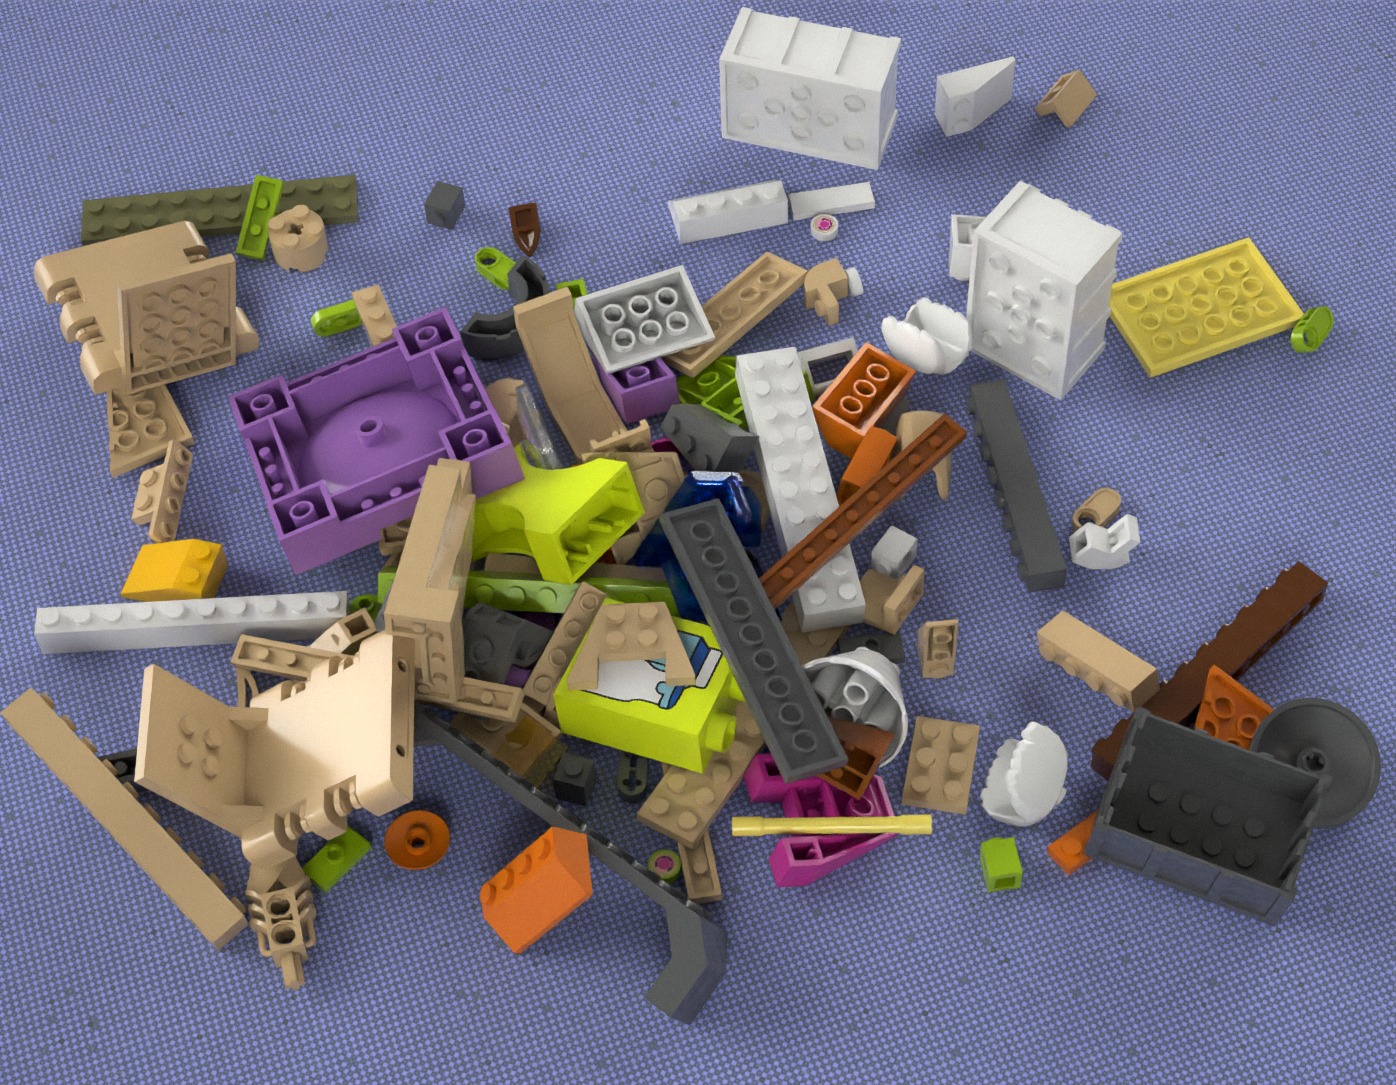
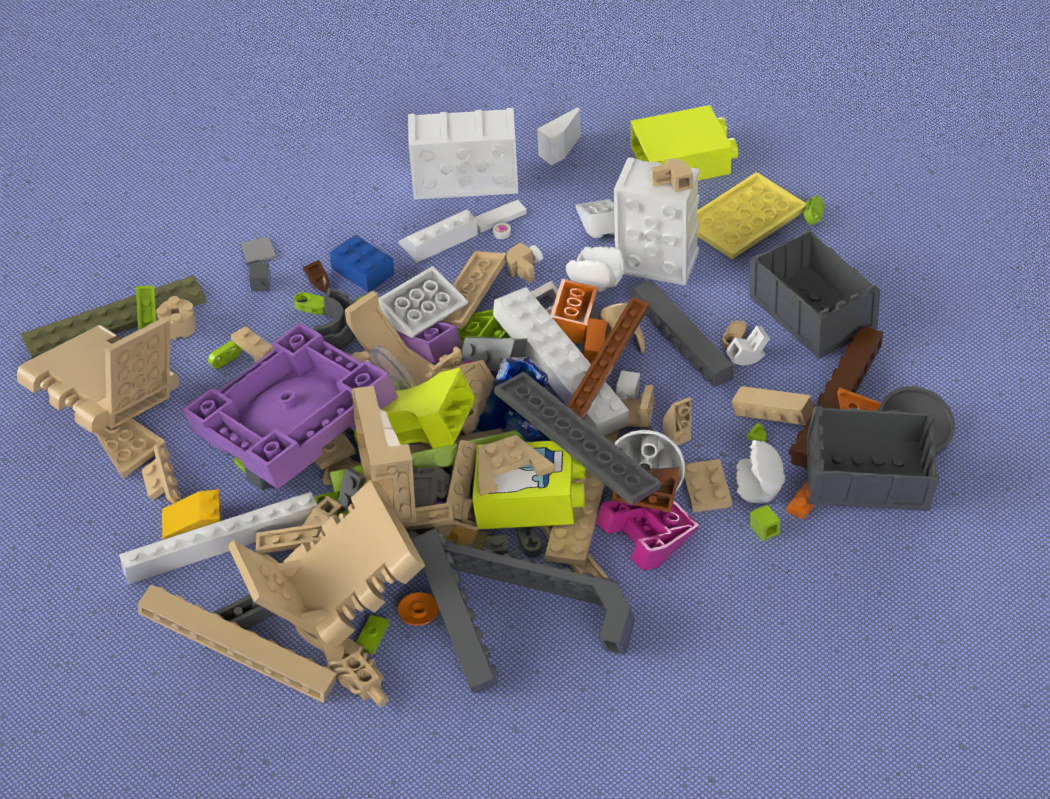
camera: 20 degrees left, 10 degrees down
(451, 875) = (455, 612): none -> dark grey brick
(465, 159) = (258, 250): none -> light grey piece
(538, 888) = (510, 602): orange slope -> none
(596, 225) = (362, 263): none -> blue brick
(901, 824) = (621, 539): light yellow piece -> none
(1059, 699) = (757, 433): none -> lime tile
(1067, 98) = (615, 124): tan panel -> none
(1077, 230) = (674, 172): none -> tan brick
(1152, 163) = (686, 135): none -> neon yellow brick
(1244, 483) = (813, 293): none -> dark grey container

